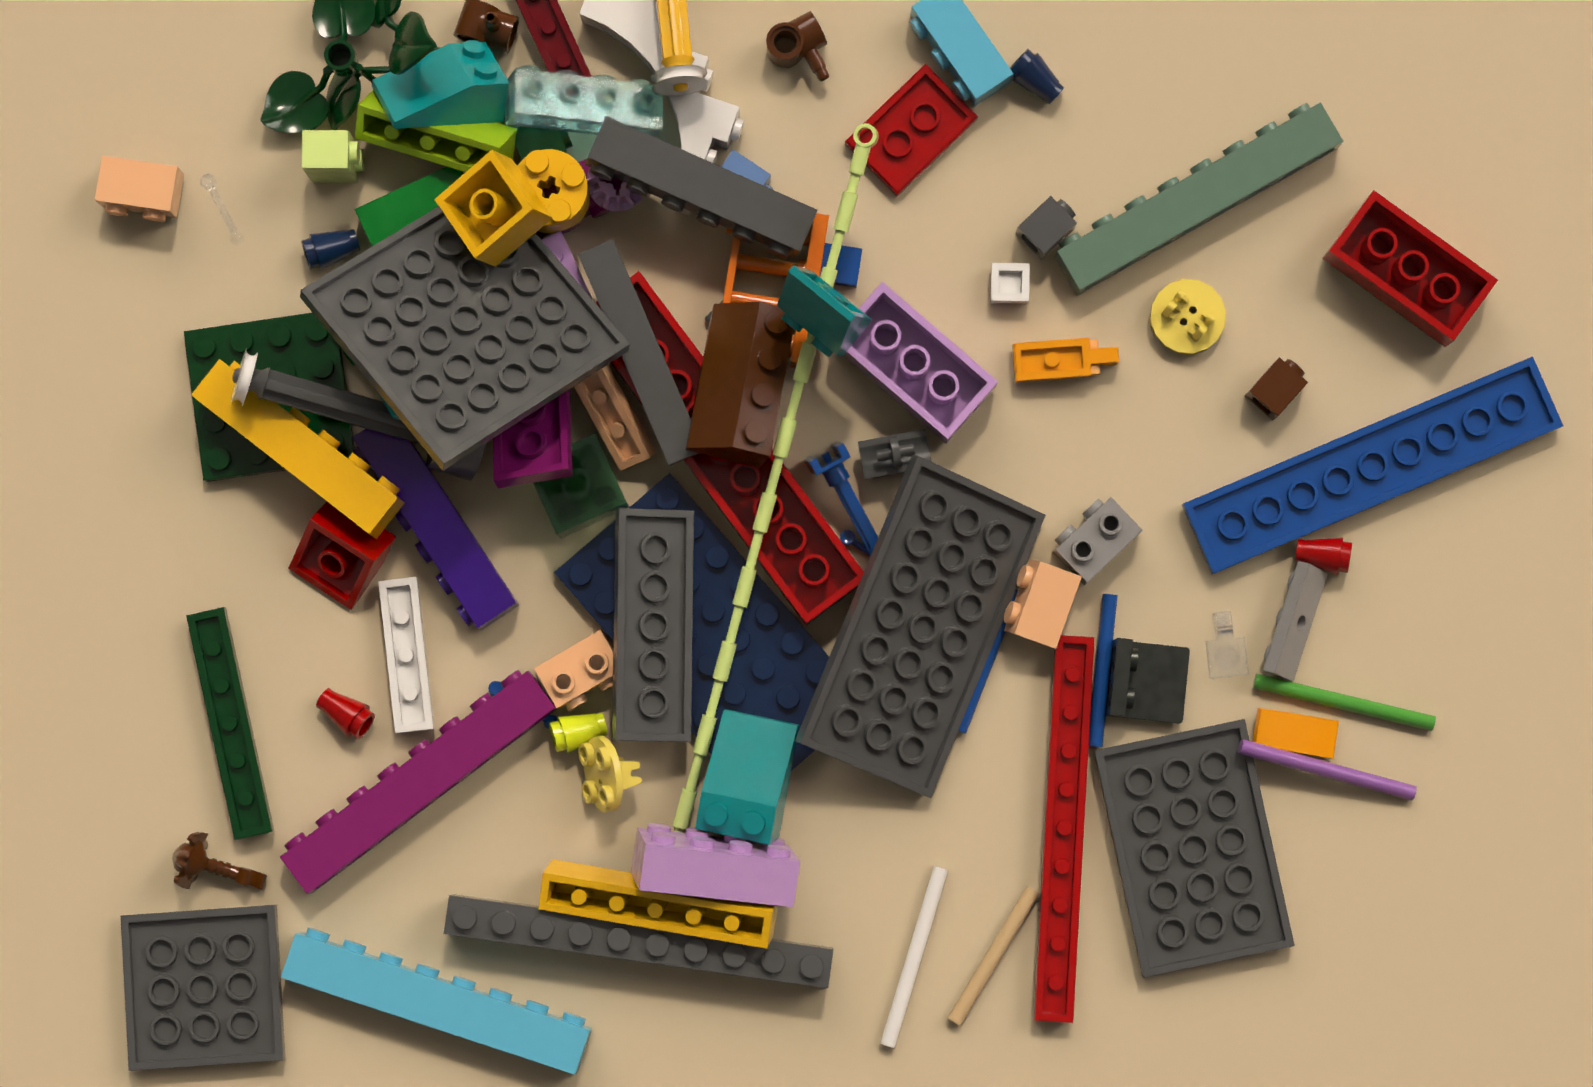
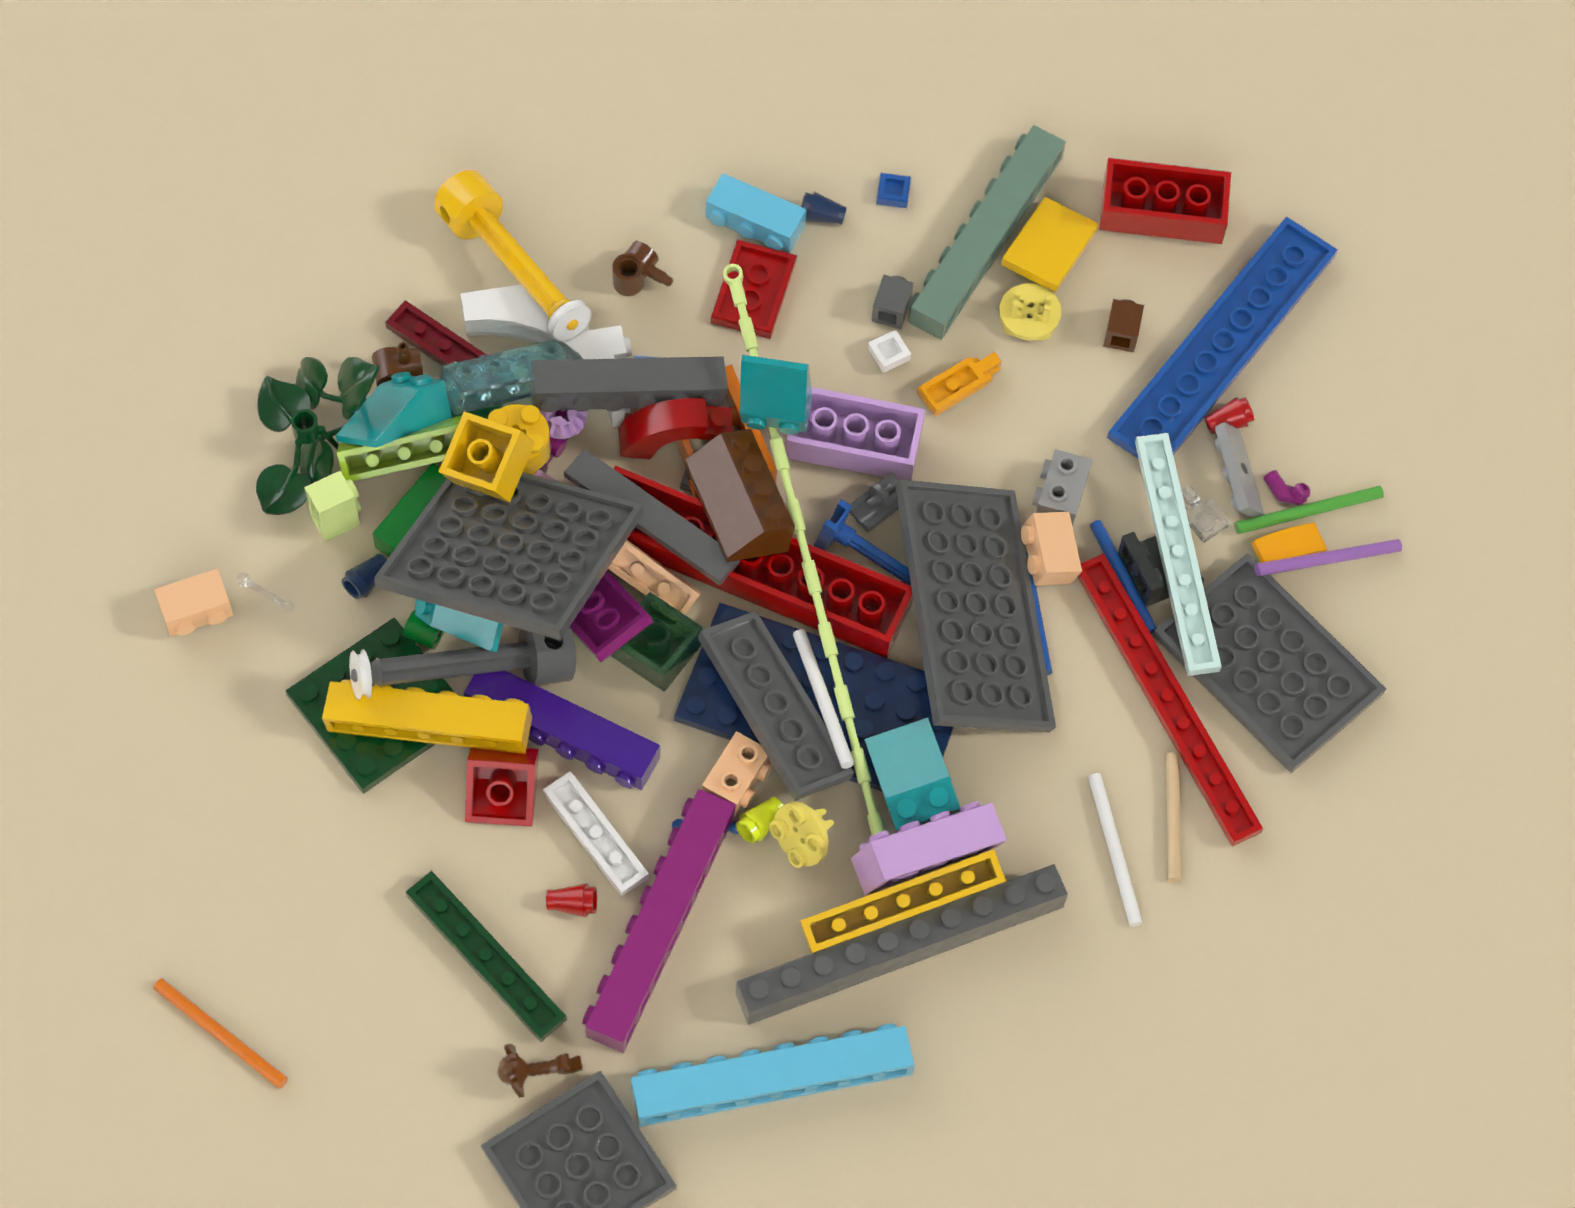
camera: 35 degrees left, 20 degrees down
(706, 644) = (823, 699): none -> white axle
(727, 254) = (668, 422): none -> red arch
(1128, 92) = (893, 190): none -> blue tile
(1167, 683) = (1178, 555): none -> light aqua plate
(1256, 249) = (1050, 244): none -> yellow tile
(1331, 671) = (1285, 493): none -> magenta arm

